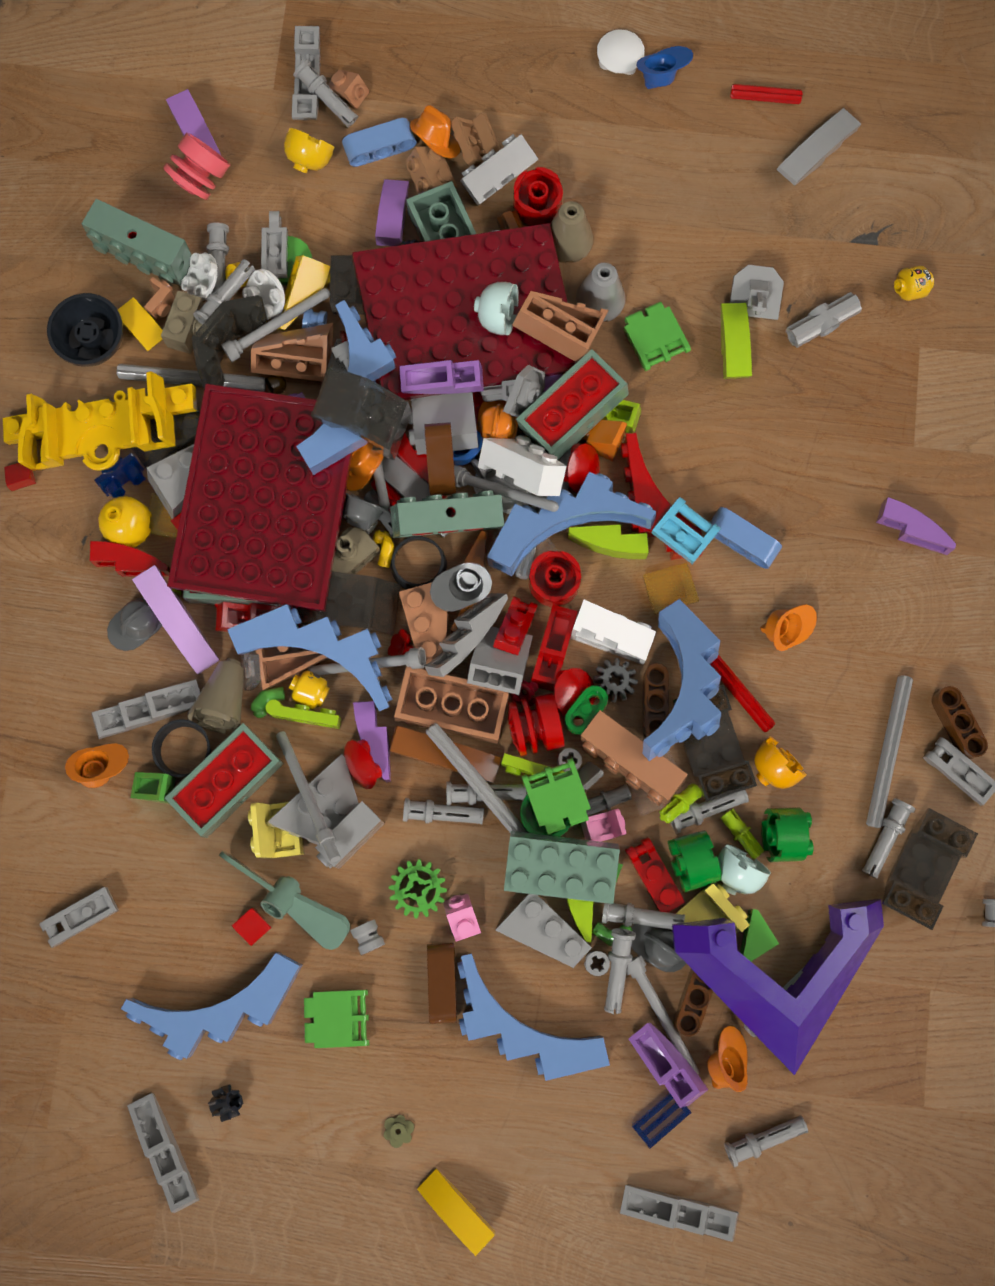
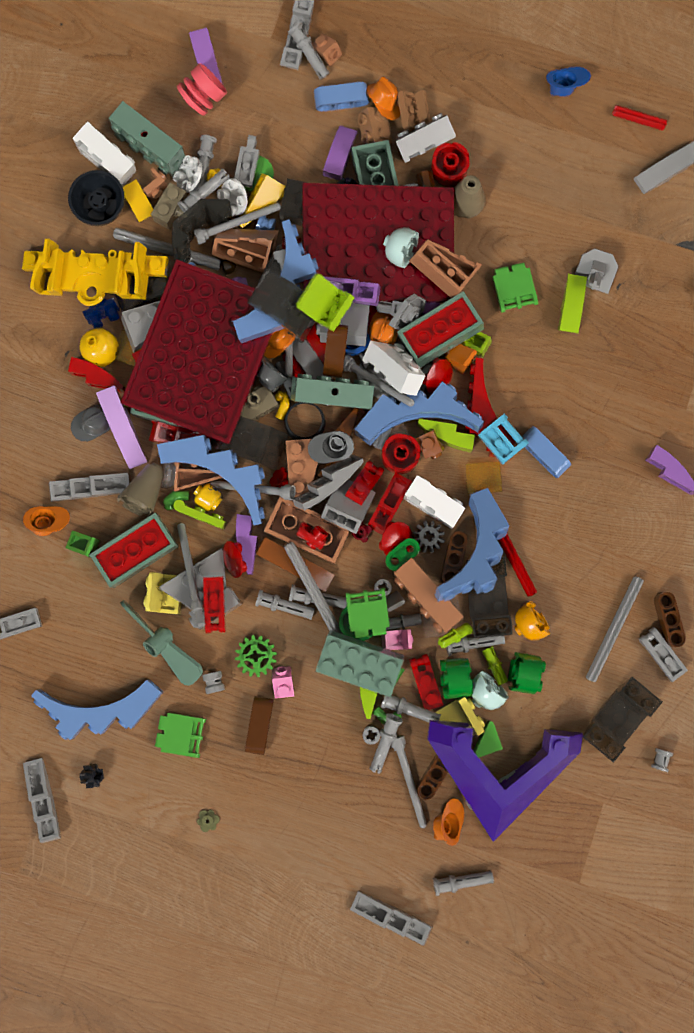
camera: 10 degrees right, 5 degrees up
(18, 476) = (28, 297): red slope -> none
(83, 272) = (104, 153): none -> white wedge
(160, 736) = (94, 509): black tyre -> none
(251, 926) = (133, 657): red slope -> none
(306, 151) = (285, 93): yellow cylinder -> none
(347, 827) = (214, 604): none -> red plate
(413, 396) = (324, 302): none -> lime bracket
(456, 1212) = (236, 884): yellow slope -> none
(464, 711) = (314, 537): none -> red plate
(516, 765) = (344, 583): lime plate -> none
(536, 725) = (364, 557): red wheel -> none
(544, 931) = (339, 705): light grey wedge -> none
(557, 1054) = (286, 756): medium blue arch -> none
(591, 558) = (430, 445): none -> dark orange bracket
(602, 290) = (481, 247): light grey cone -> none
(620, 51) = (537, 61): white dish -> none
(657, 947) = (415, 732): dark grey piece -> none
(665, 1130) = (404, 837): clear blue tile -> none
(668, 1065) = (405, 816): medium lavender slope -> none
(790, 626) = (563, 524): orange piece -> none
(823, 319) = (641, 301): light grey piece -> none
(893, 826) = (604, 683): light grey pin -> none

